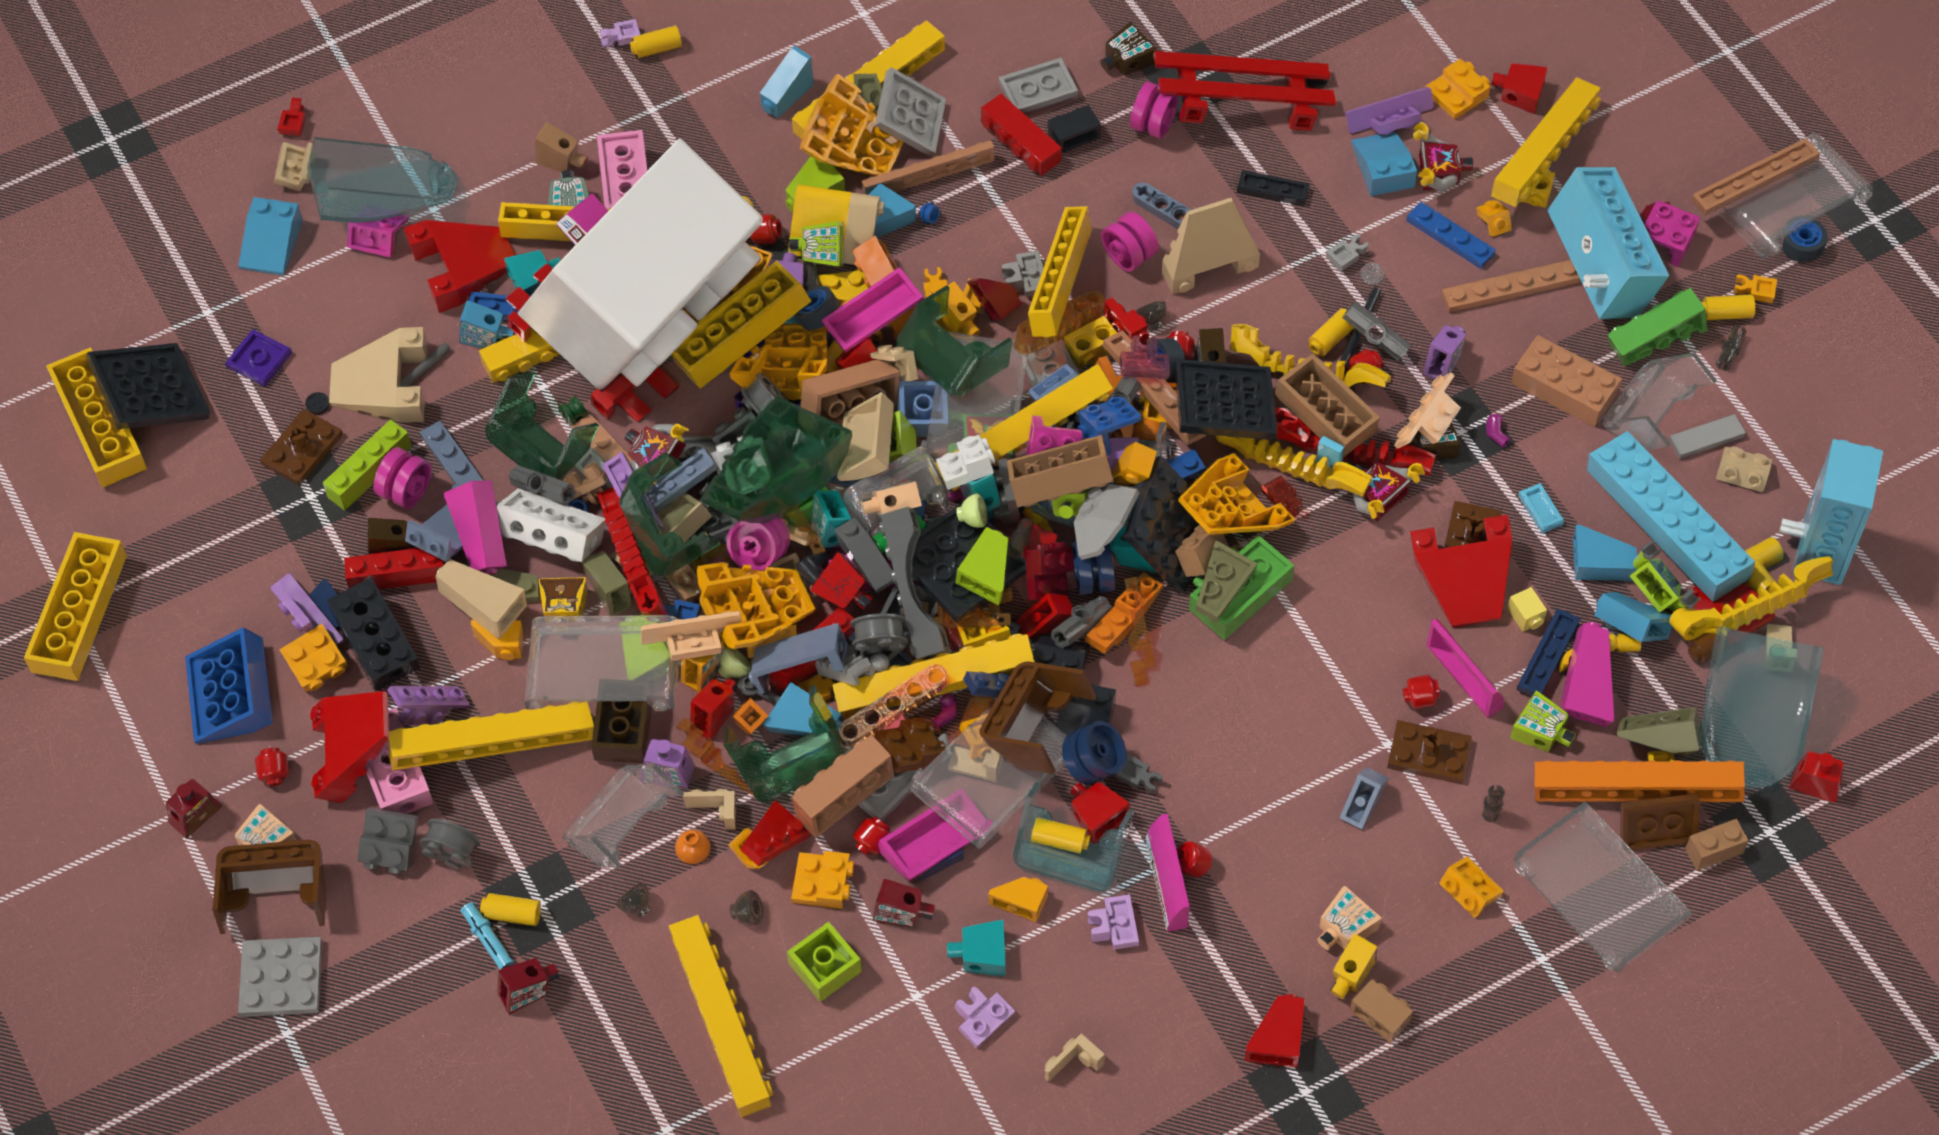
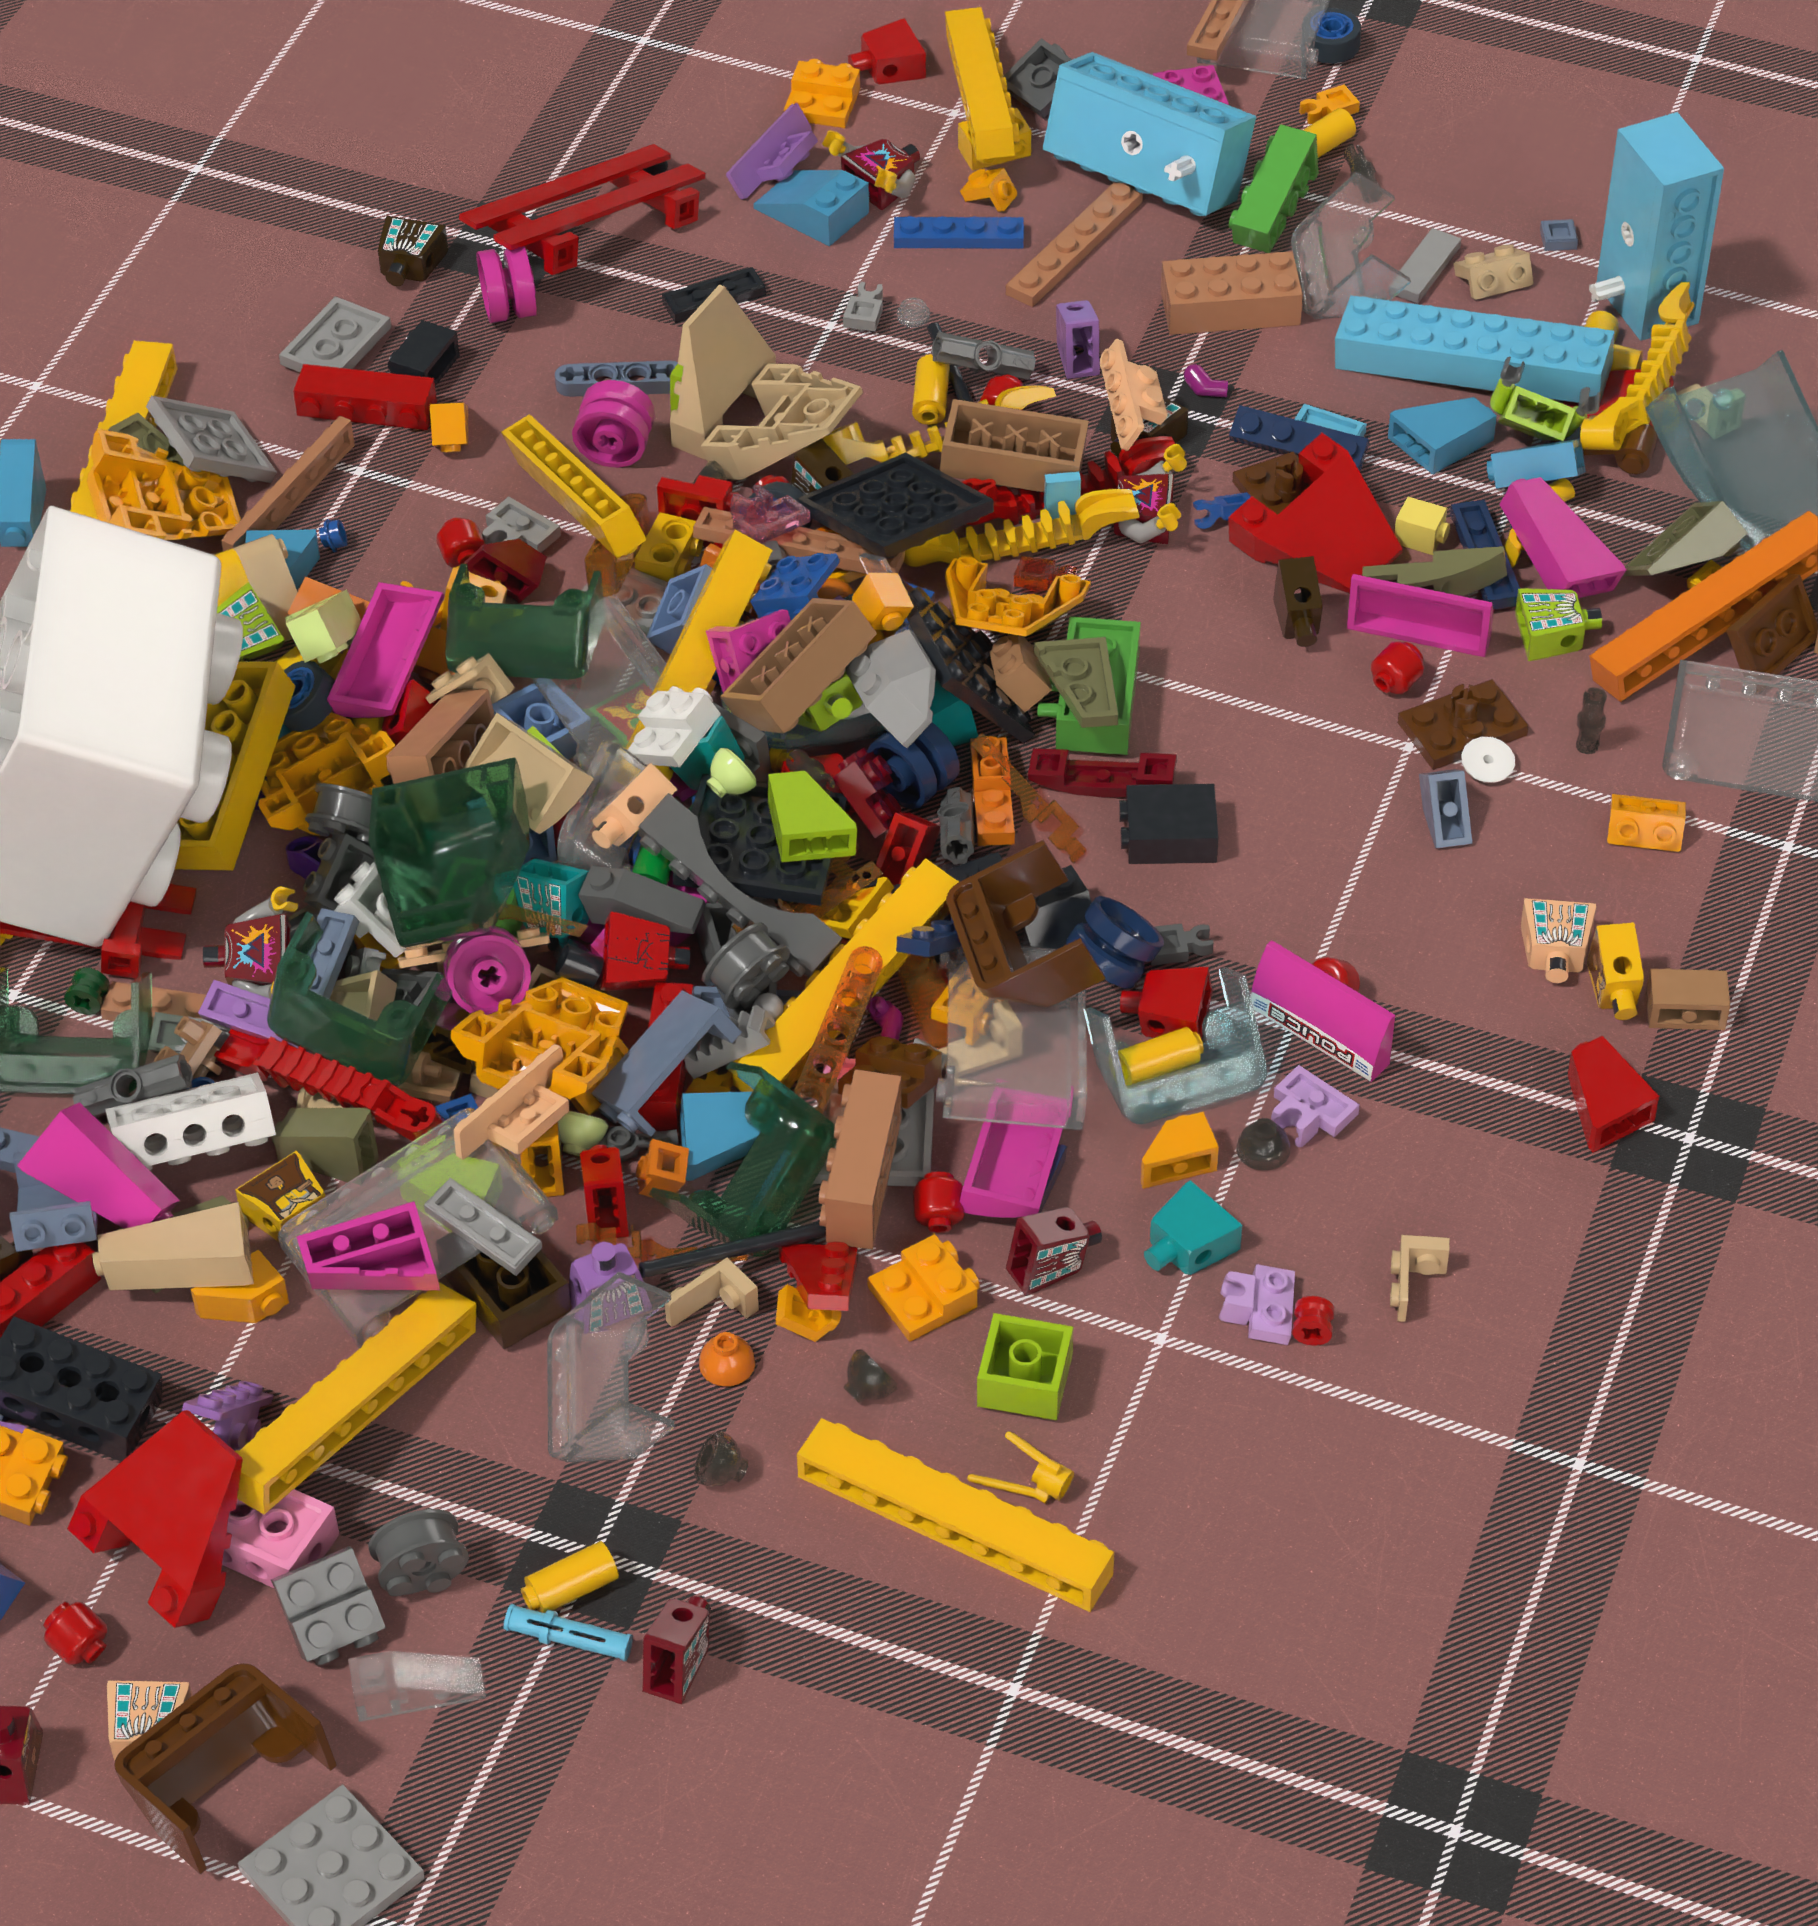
camera: 40 degrees left, 10 degrees down
(395, 908) = (412, 1682): none -> clear slope
(555, 665) = (371, 1253): none -> dark pink wedge
(623, 688) = (483, 1226): none -> light grey tile
(737, 786) = (731, 1249): none -> black piece
(784, 1032) = (1050, 1476): none -> yellow plant
(848, 275) = (324, 627): none -> yellowish green wedge
(987, 263) = (458, 540): none -> red head
(996, 1046) = (1313, 1320): none -> red wheel
(1048, 182) = (449, 426): none -> light orange slope
(1071, 927) = (1263, 1145): none -> clear smoke brick
(1194, 643) = (1098, 778): none -> dark red slope
(1202, 700) = (1169, 823): none -> black brick
(1220, 309) = (796, 411): none -> tan wedge
(1403, 612) = (1298, 612): none -> dark brown torso
(1419, 784) = (1488, 759): none -> white piece
(1425, 520) = (1219, 507): none -> blue plate
(1504, 654) = (1451, 571): none -> olive slope
(1513, 504) = (1289, 435): none -> dark blue plate
(1598, 152) = (1035, 76): none -> dark grey plate
(1810, 468) = (1558, 235): none -> sand blue tile

